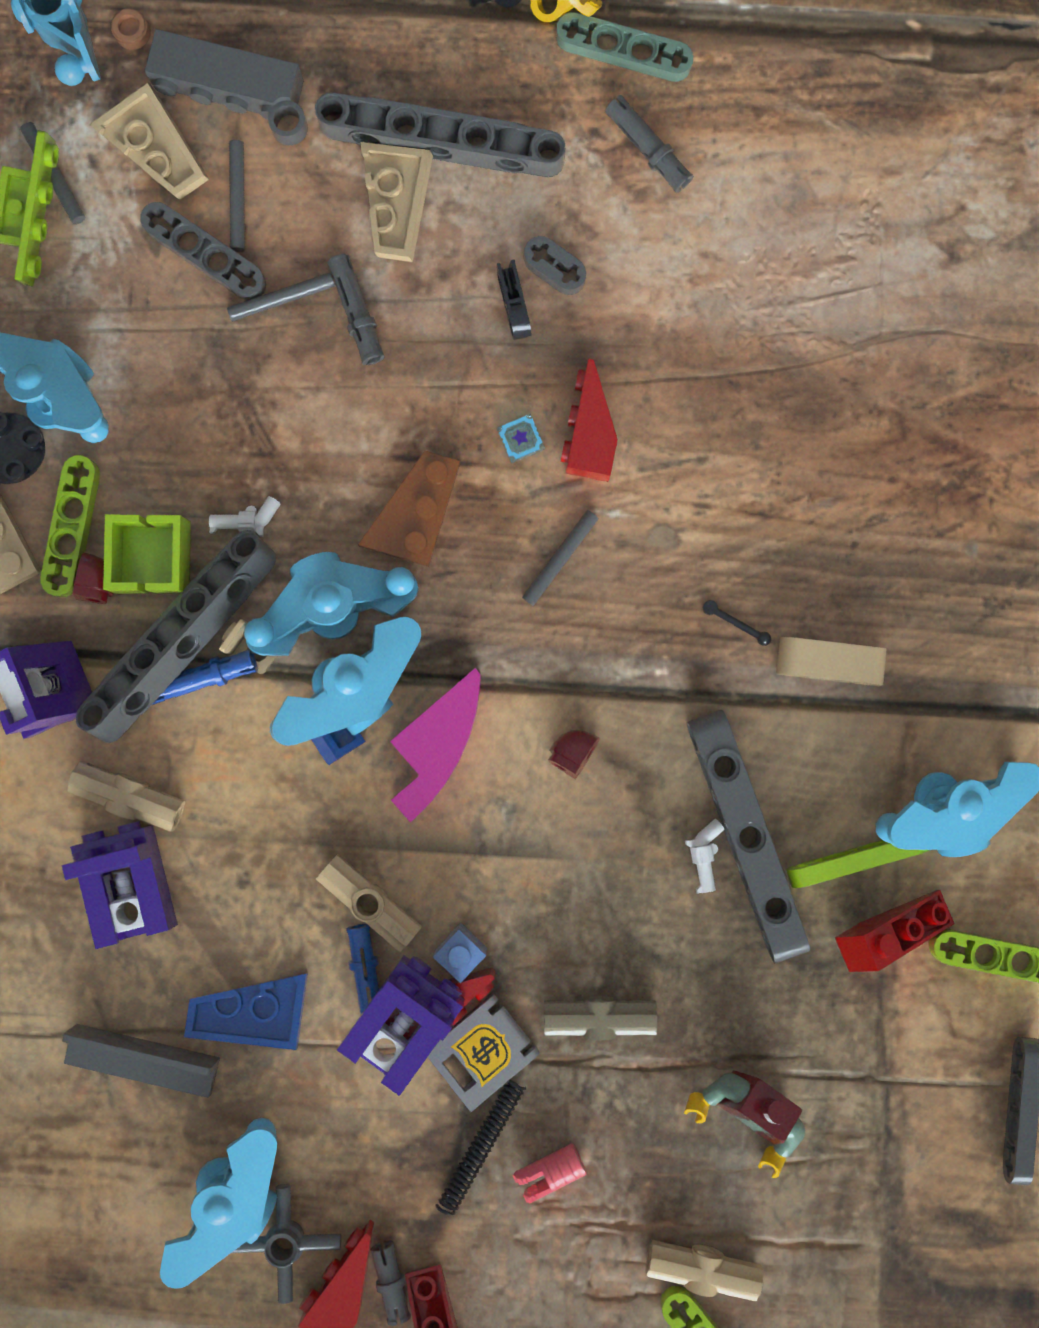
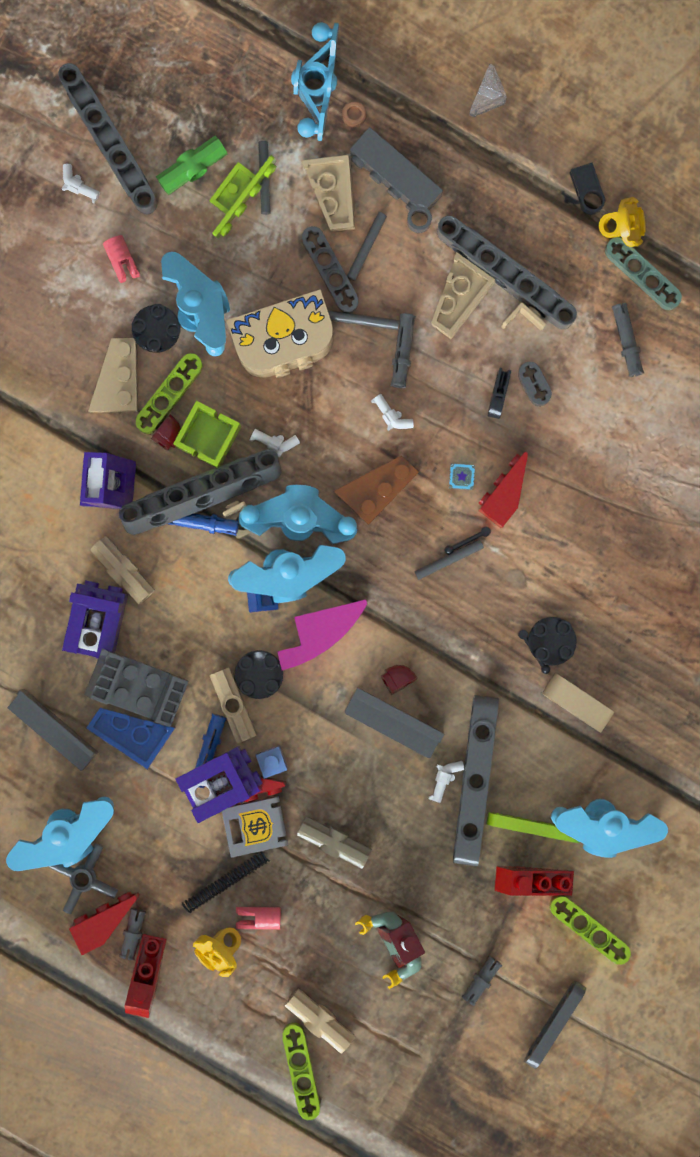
camera: 30 degrees right, 0 degrees up
(180, 367) = (283, 336): none -> tan brick
(223, 947) = (136, 687): none -> dark grey plate
(383, 843) = (258, 674): none -> black dish
(384, 405) = (391, 416): none -> white piece
(500, 174) = (530, 313): none -> tan bracket
(519, 1253) = (214, 952): none -> yellow tile
(589, 497) = (485, 531): none -> black hinge
(598, 814) = (393, 723): none -> dark grey panel
(754, 596) = (552, 641): none -> black dish
(894, 1102) = (482, 980): none -> dark grey pin

